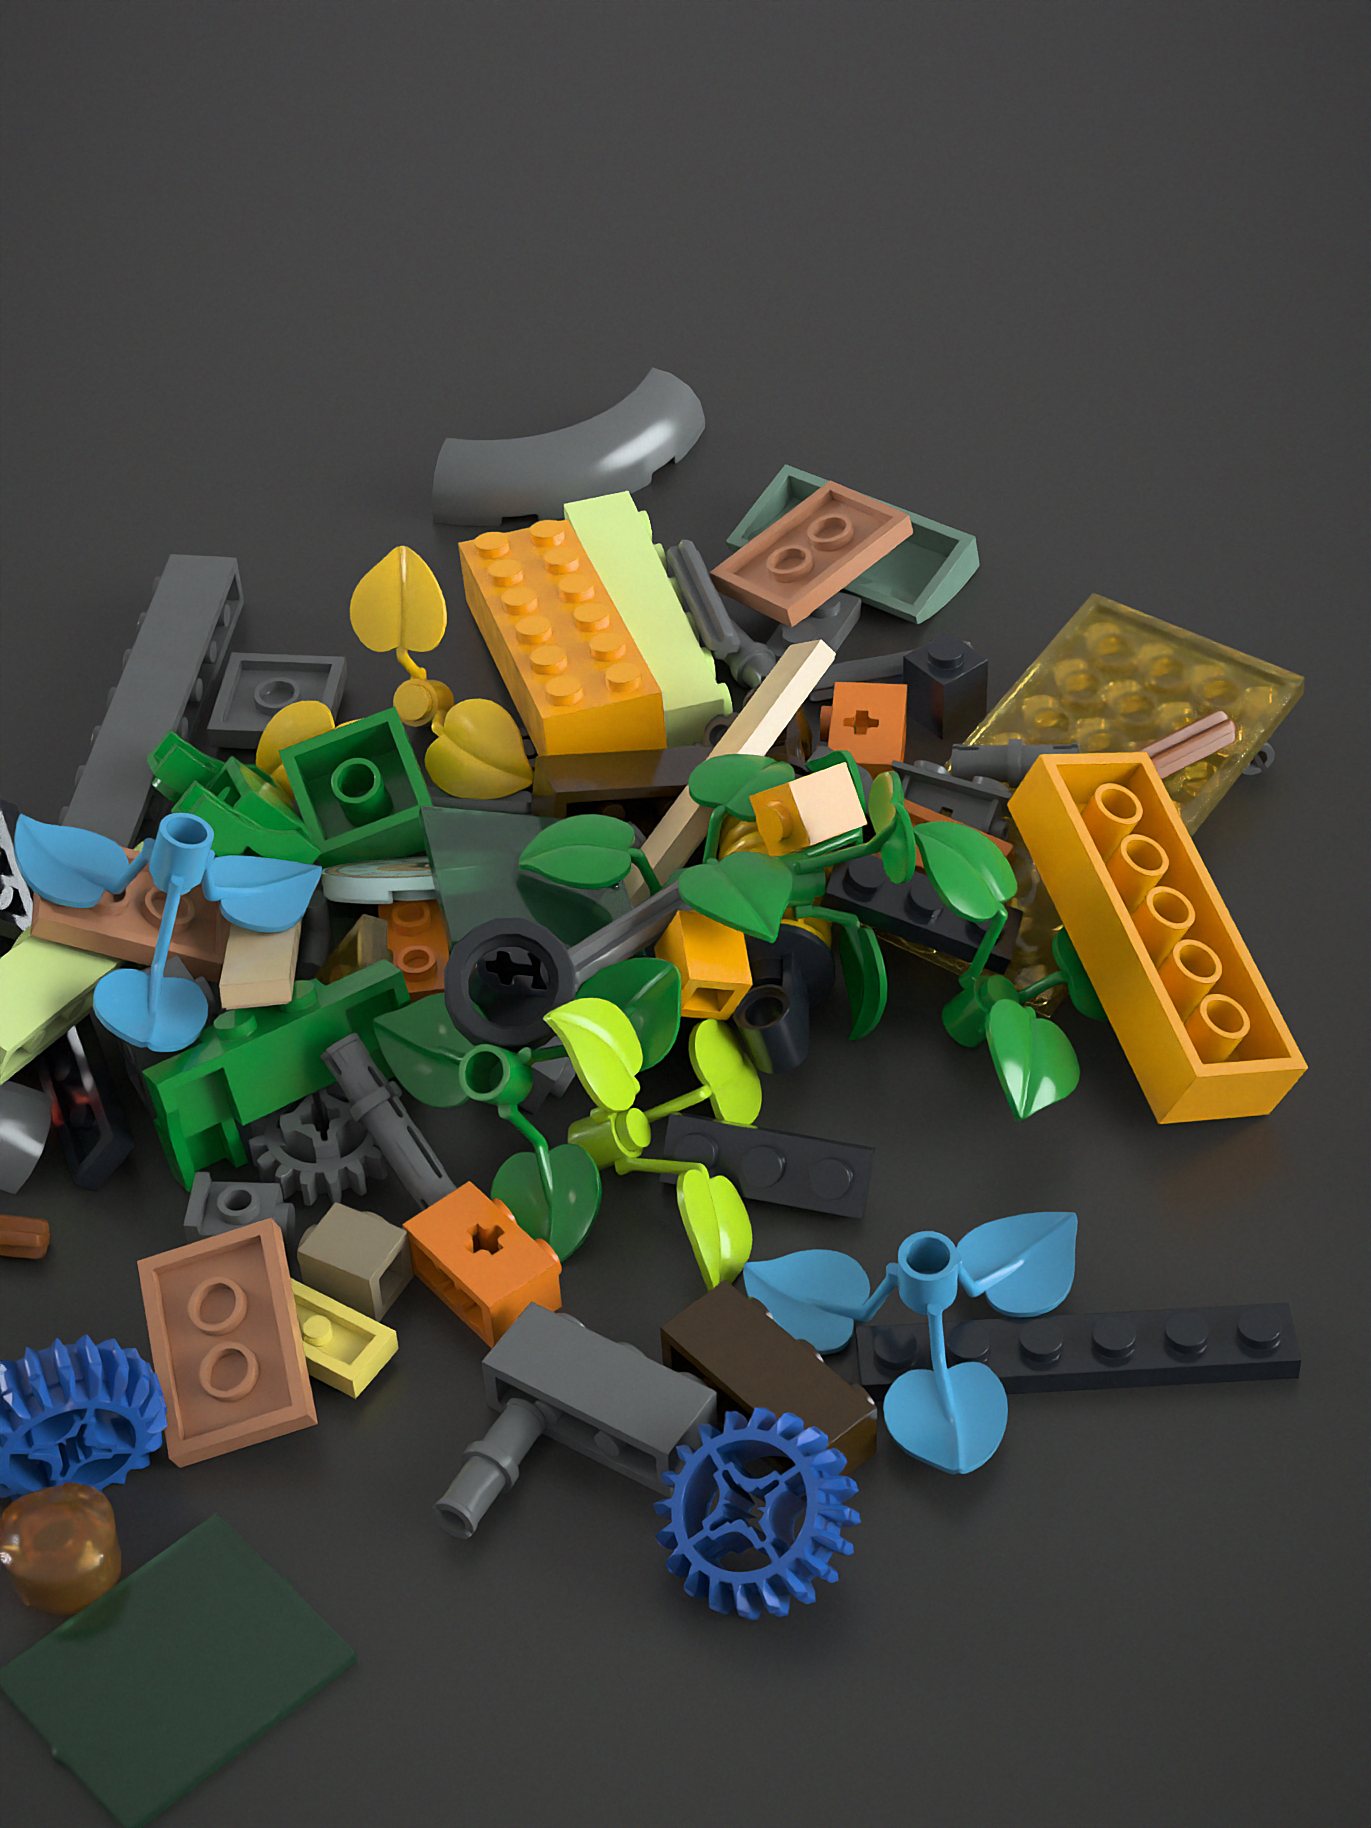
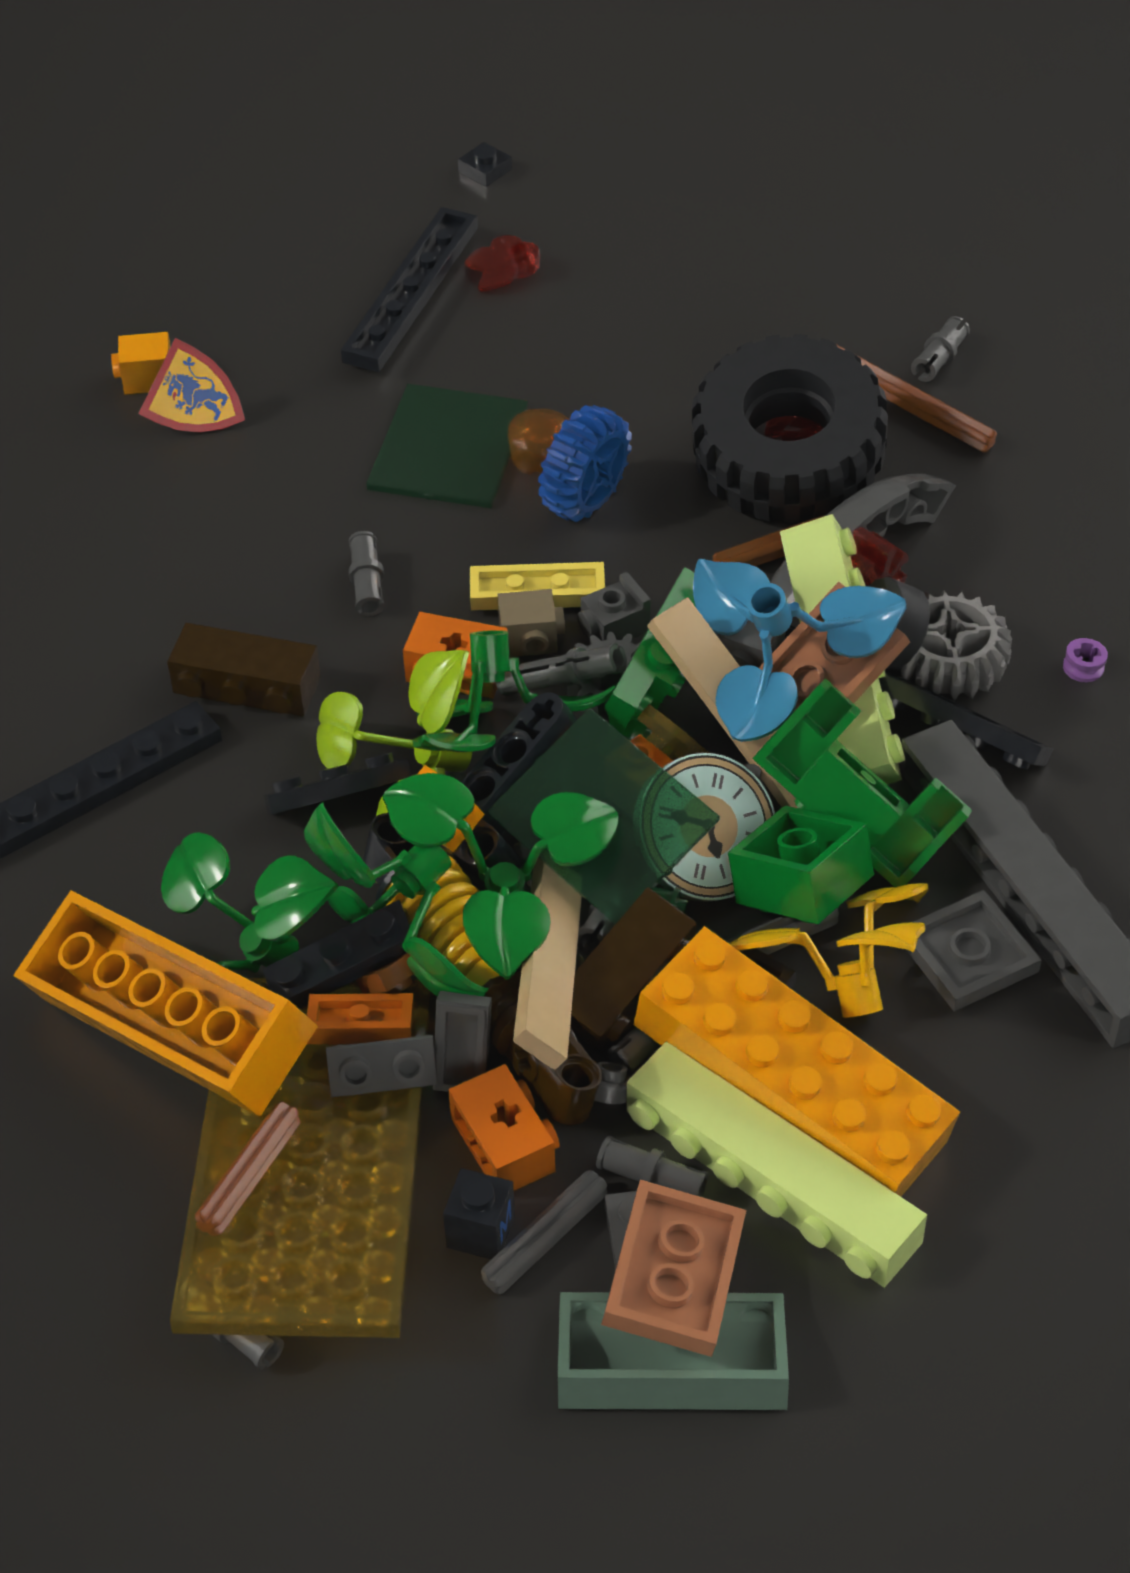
camera: 145 degrees right, 5 degrees up
(226, 1342) = (549, 541): nougat plate -> none
(488, 937) = (519, 683): black tyre -> none
(595, 458) = (956, 1379): dark grey brick -> none
(599, 1395) = (337, 620): dark grey brick -> none
(626, 934) = (495, 787): dark grey axle -> none
(703, 599) = (729, 1181): dark grey axle -> none
(705, 1538) = (197, 588): blue gear -> none
(807, 810) = (436, 904): brick -> none
(944, 1414) = (128, 705): dark azure plant -> none
(1002, 762) = (352, 1112): dark grey pin -> none

